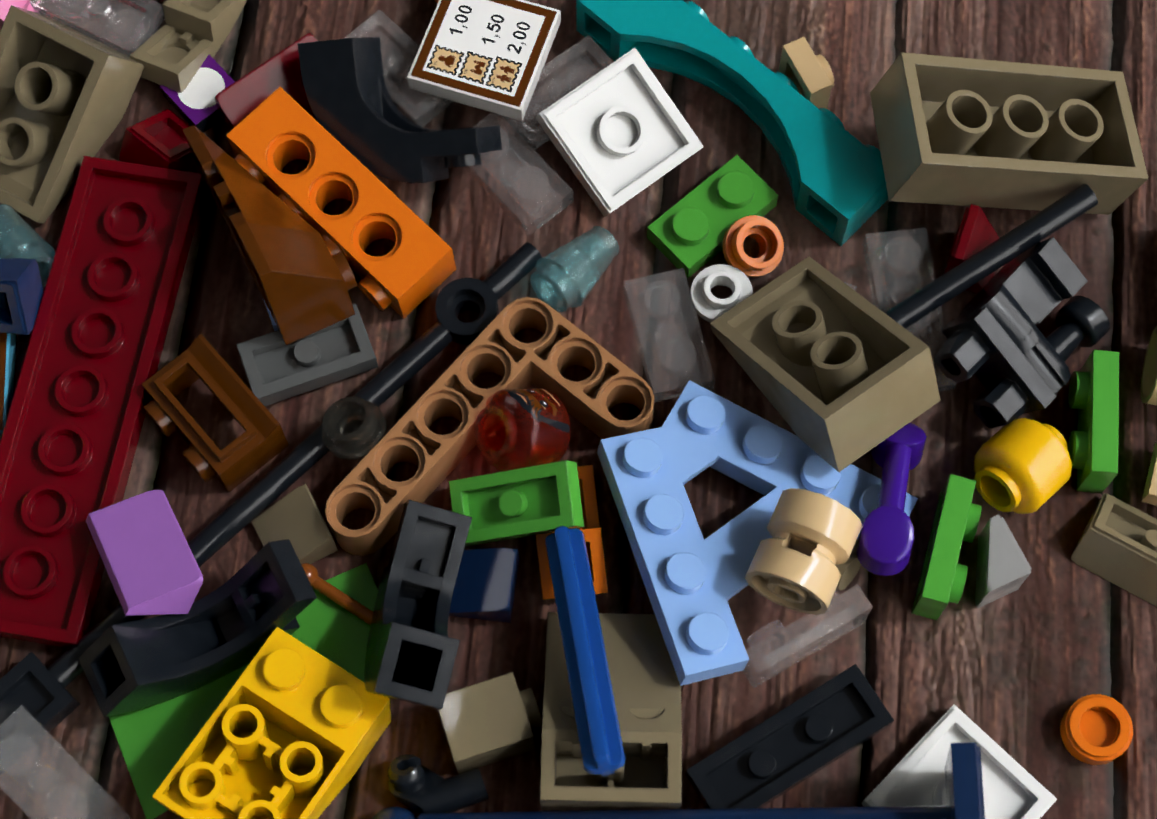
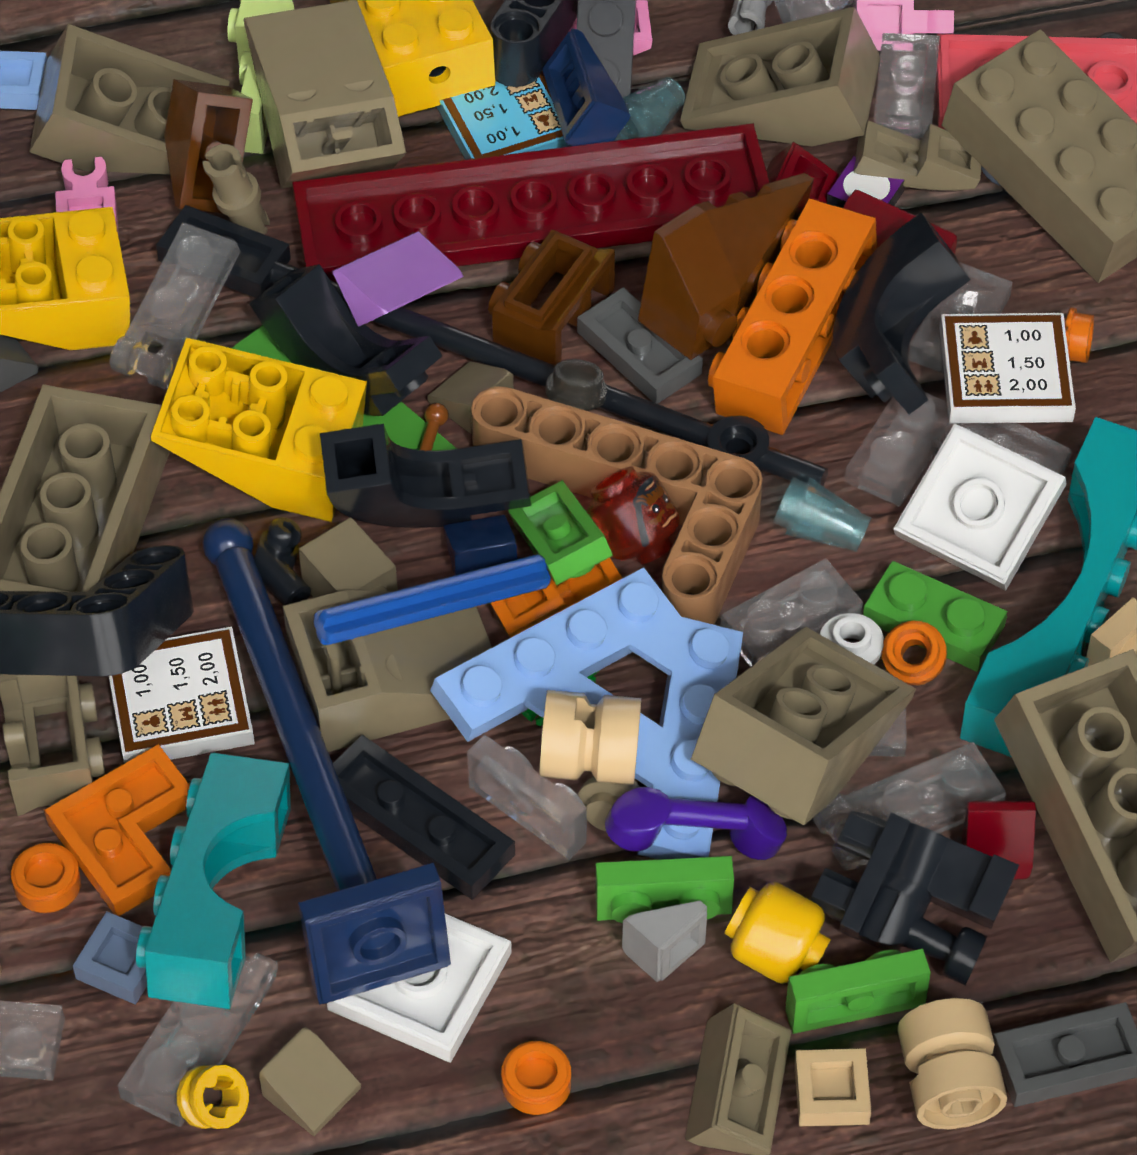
camera: 70 degrees right, 15 degrees down
(993, 256) = (977, 830): black bar -> none

